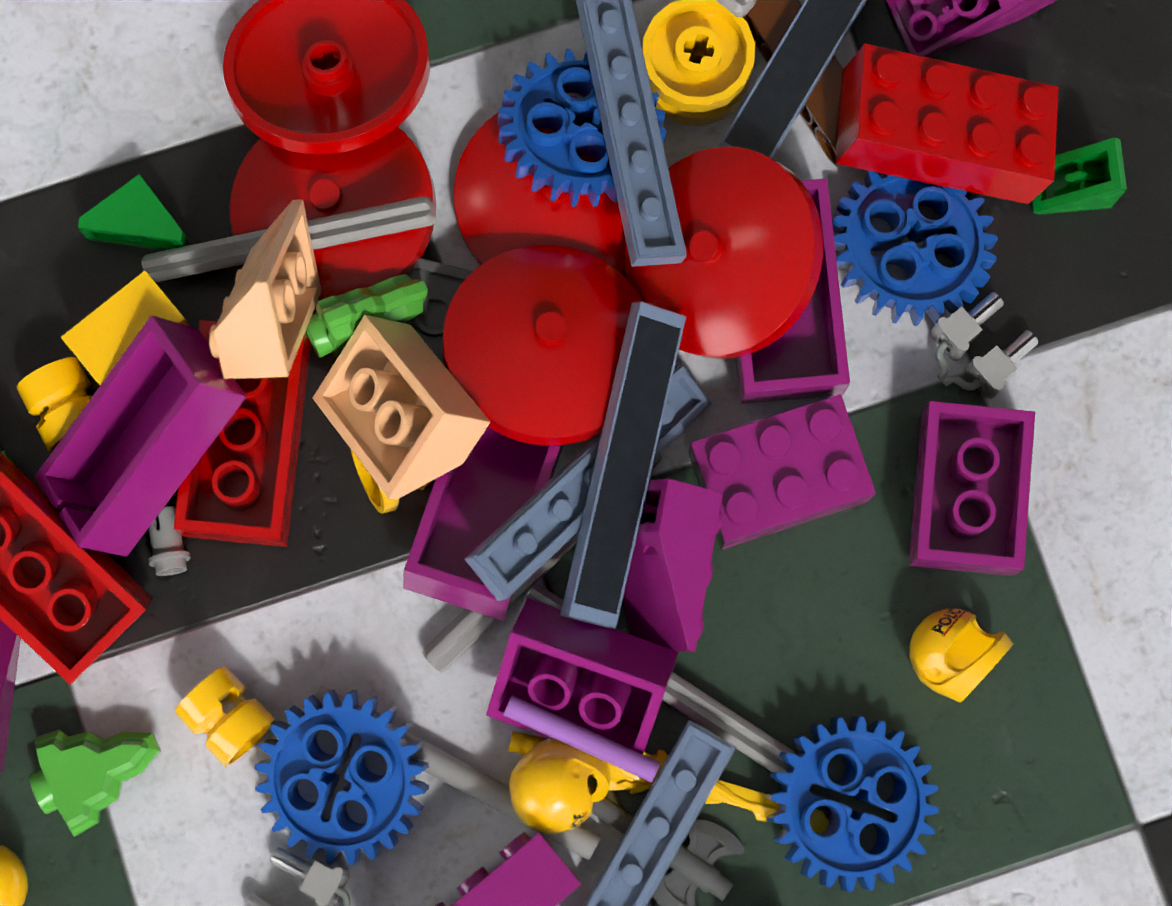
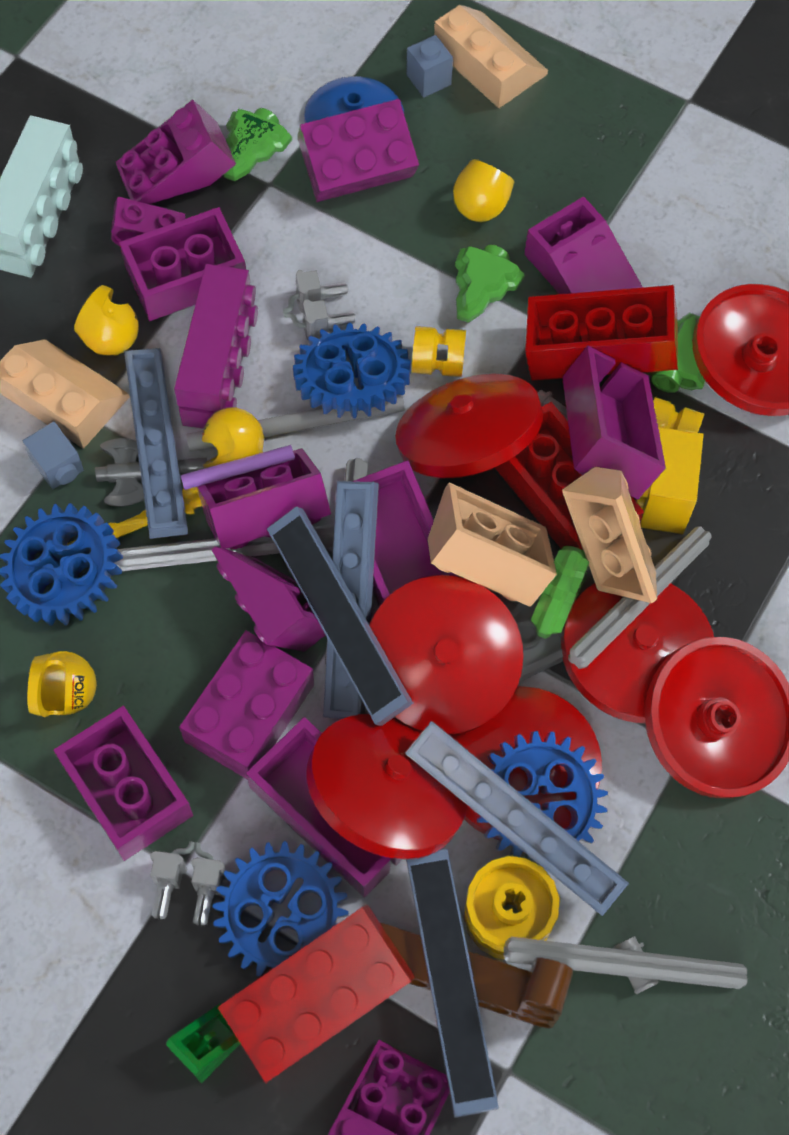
camera: 140 degrees right, 15 degrees down
(133, 218) = (734, 553): green slope -> none
(284, 582) = (469, 425): none -> red dish

